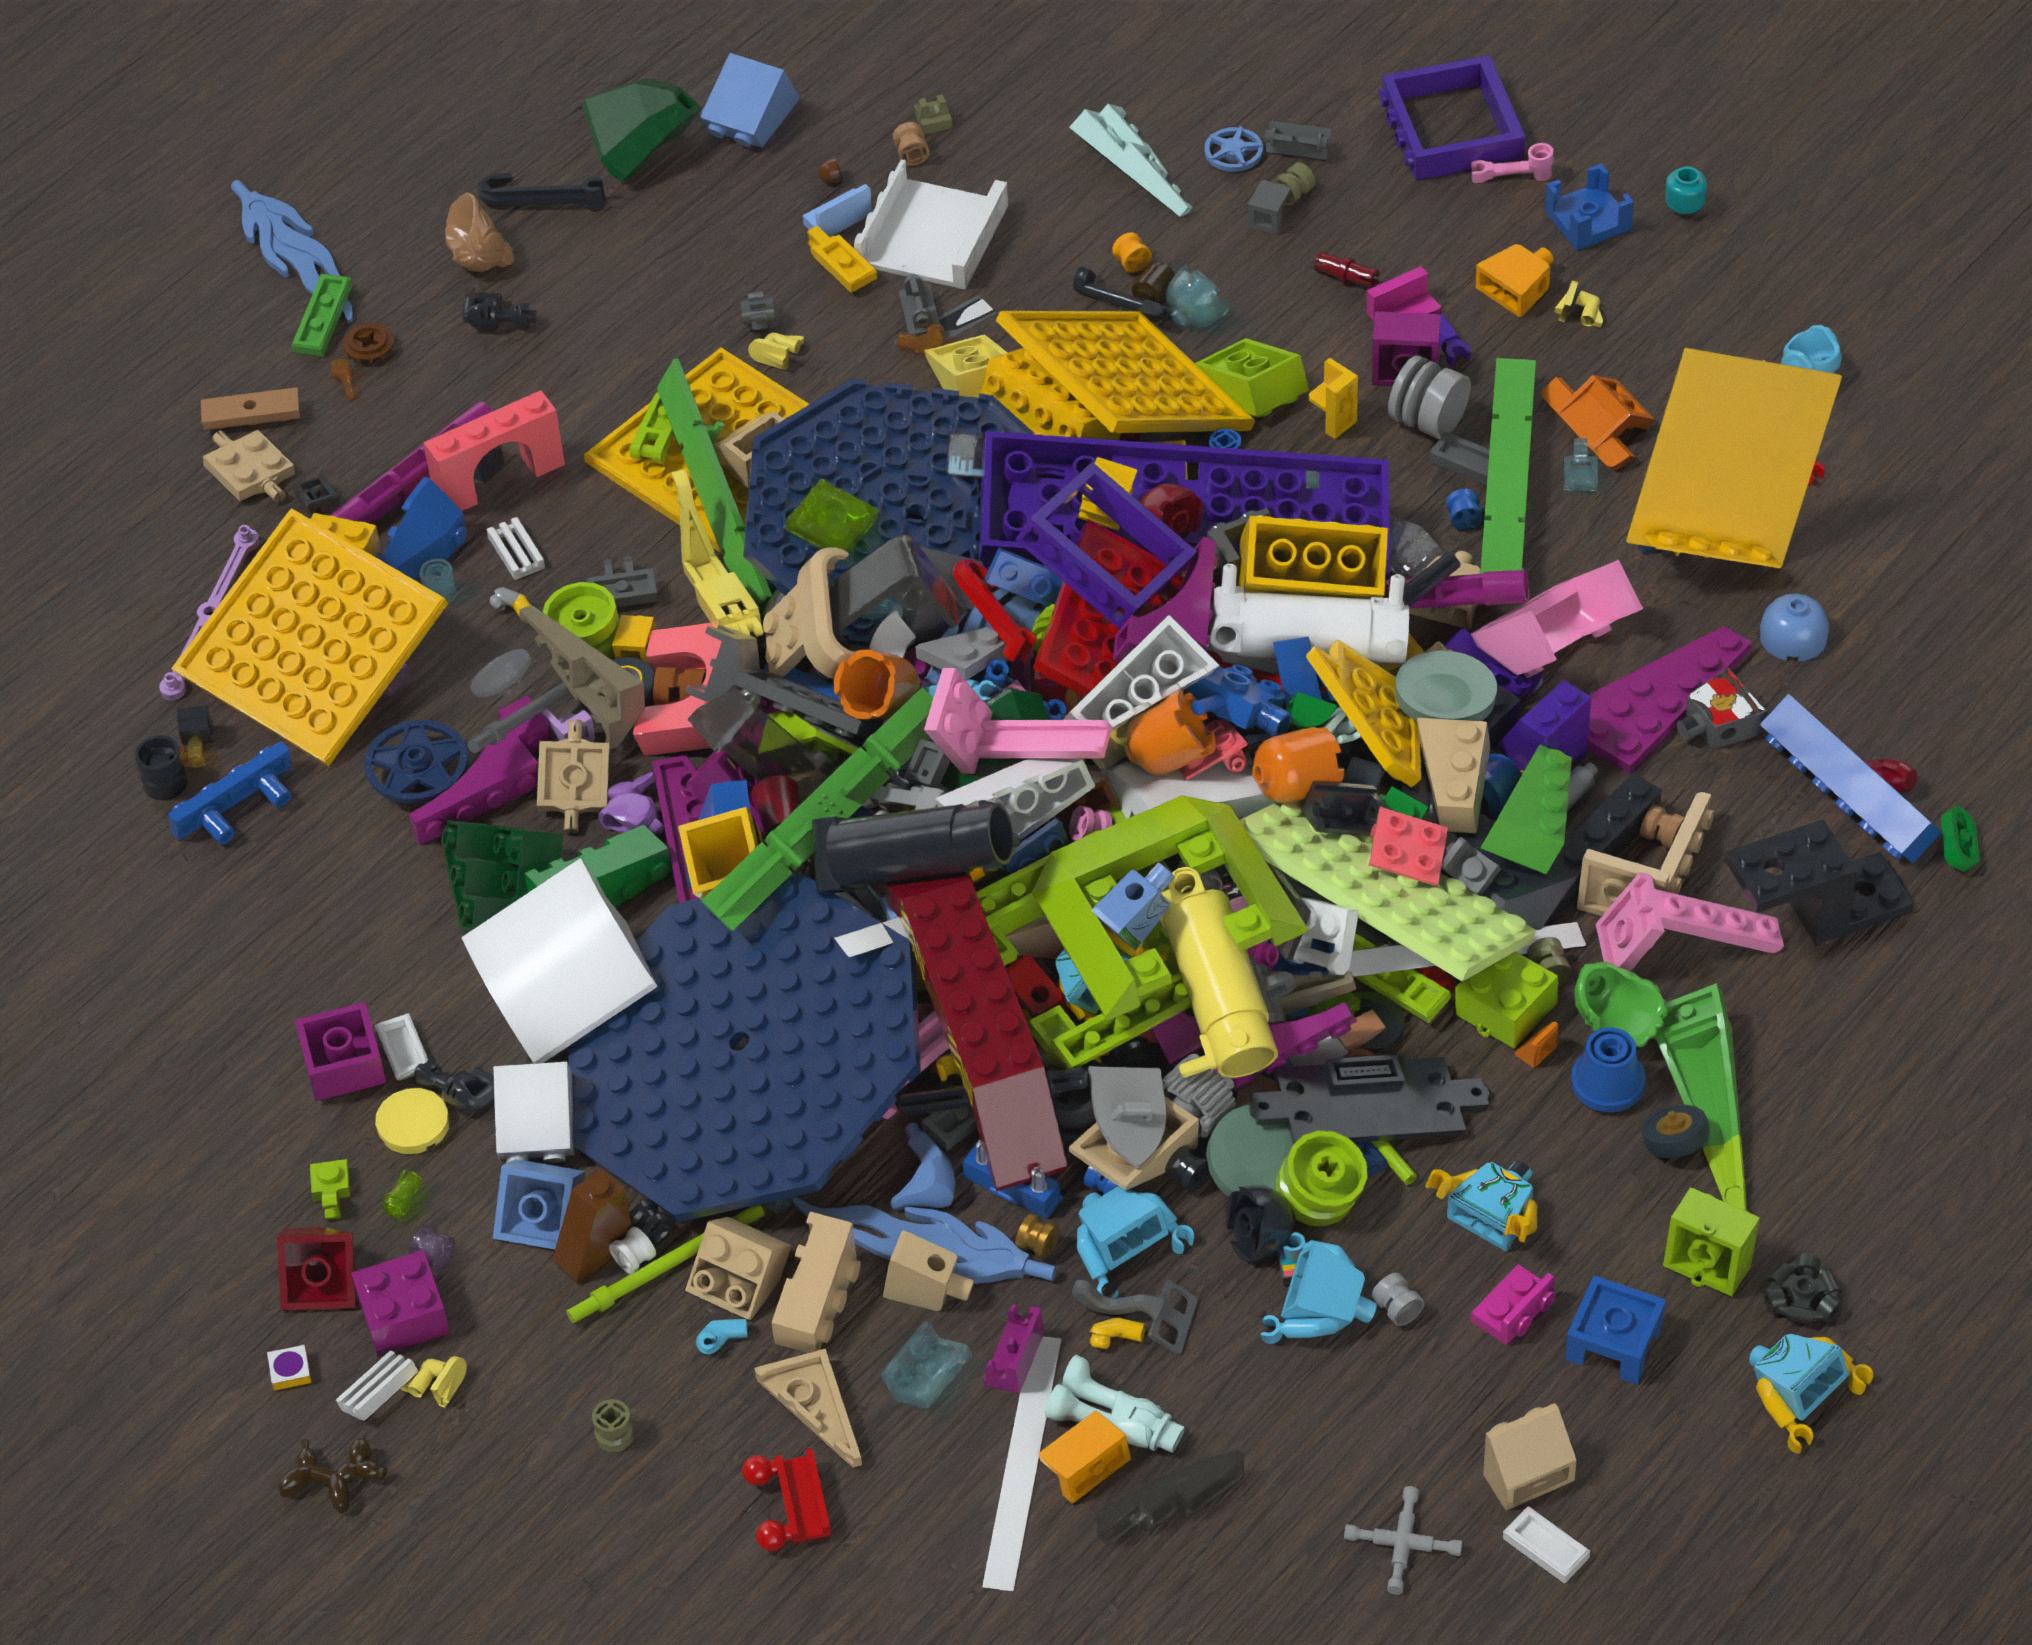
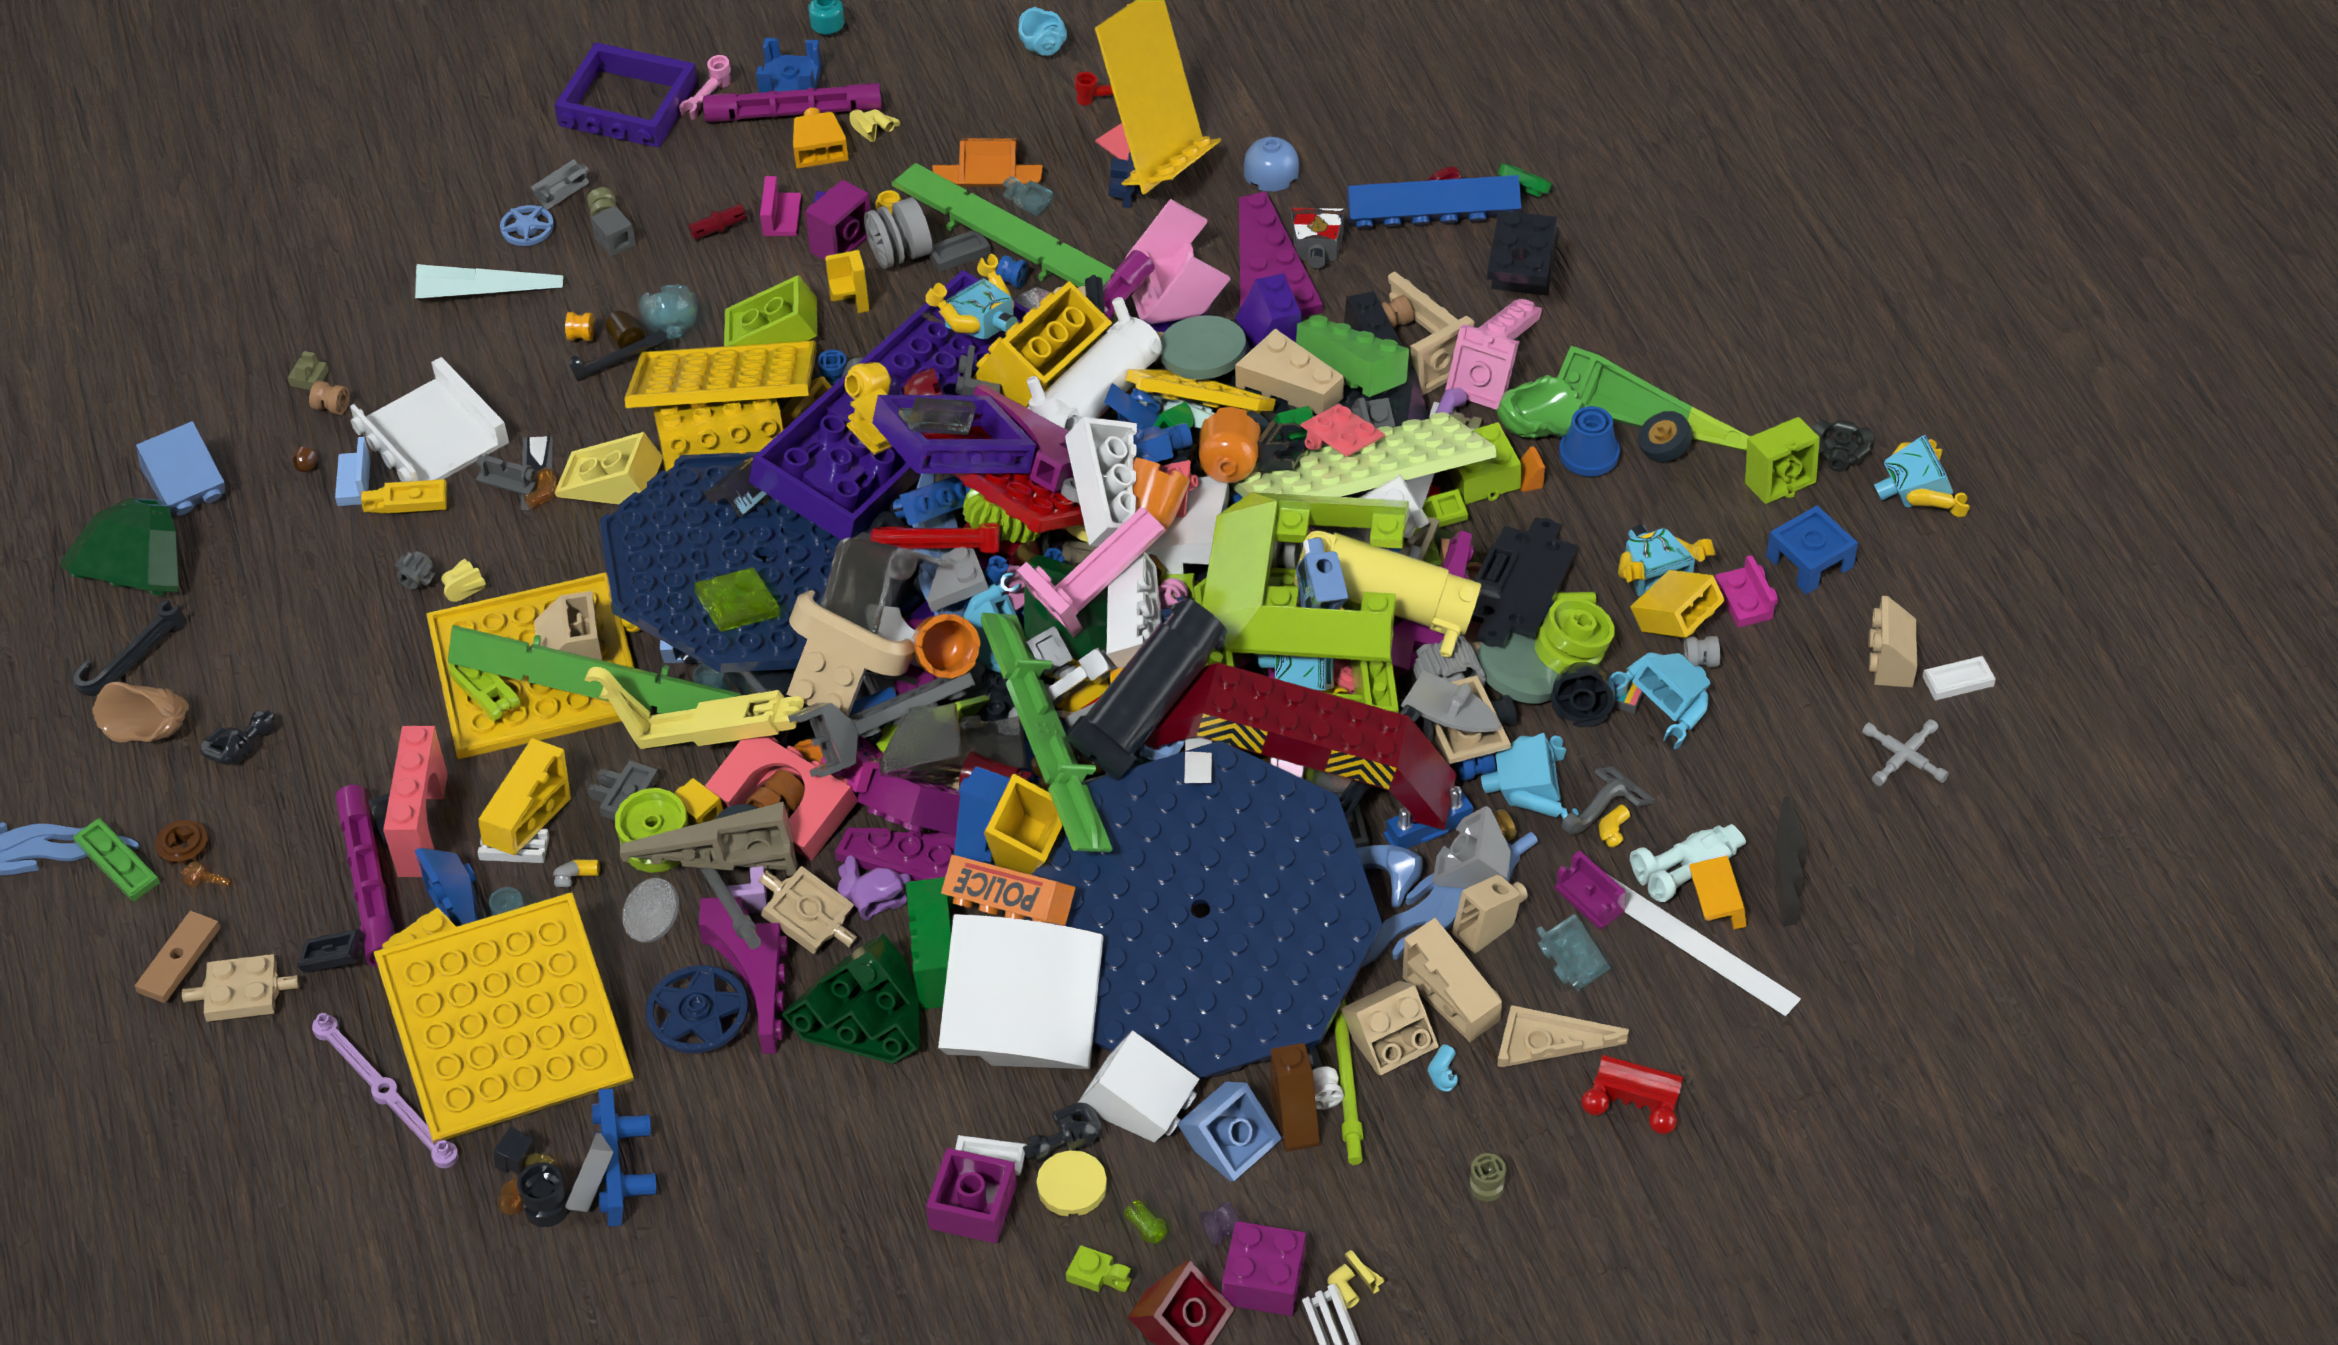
camera: 60 degrees left, 0 degrees up
(189, 779) = (590, 1175): none -> light grey slope
(549, 522) = (526, 798): none -> yellow wedge
(657, 892) = (1007, 890): none -> orange brick
(977, 1229) = (1474, 854): none -> light grey slope
(1083, 514) = (939, 416): none -> clear smoke panel
(1151, 460) = (867, 378): none -> yellow head
(1329, 491) = (978, 309): none -> torso
(1434, 1244) = (1677, 603): none -> yellow brick
(1481, 374) = (886, 199): none -> yellow plate
(1550, 234) = (794, 102): none -> magenta piece
(1577, 929) = (1452, 398): none -> medium lavender arm

